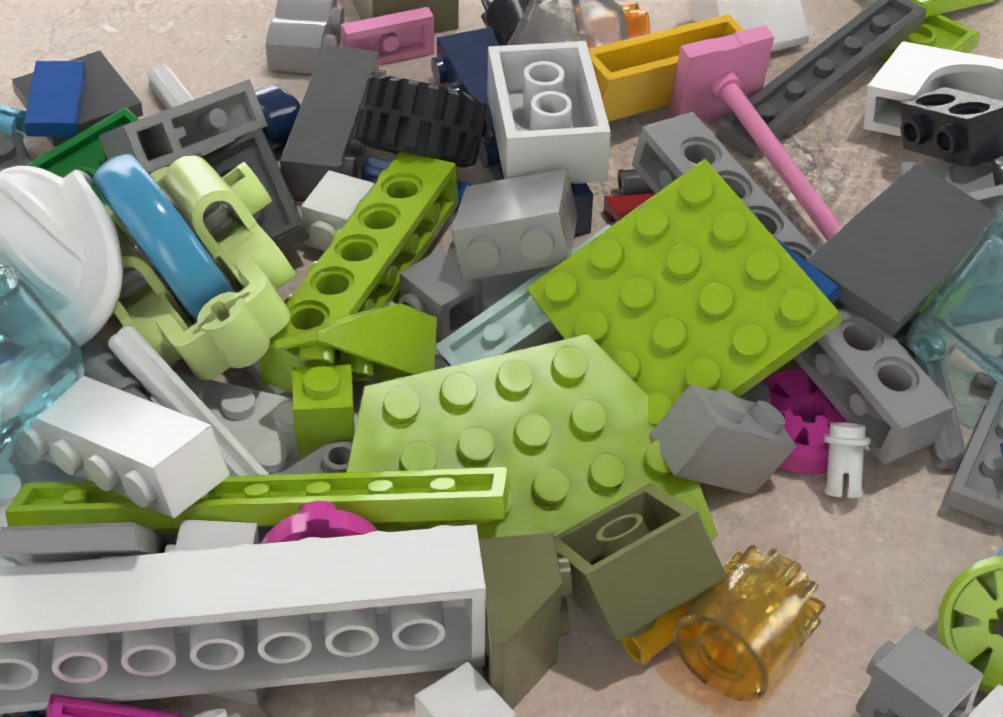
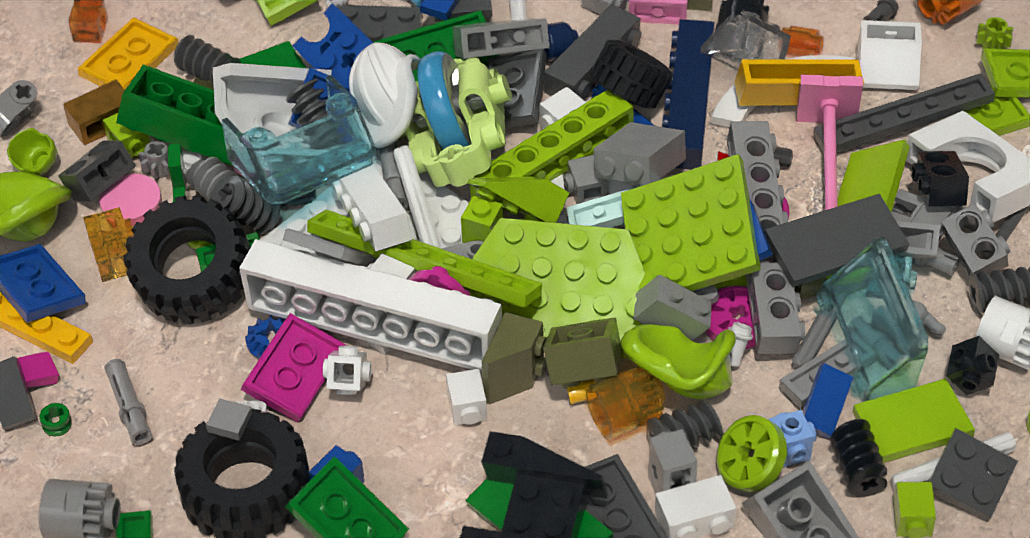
camera: 30 degrees right, 5 degrees up
(548, 111) = (697, 91): white brick -> none
(822, 518) = (683, 365): none -> lime piece
(850, 157) = (874, 172): none -> lime tile
(875, 611) = (694, 421): none -> dark grey piece

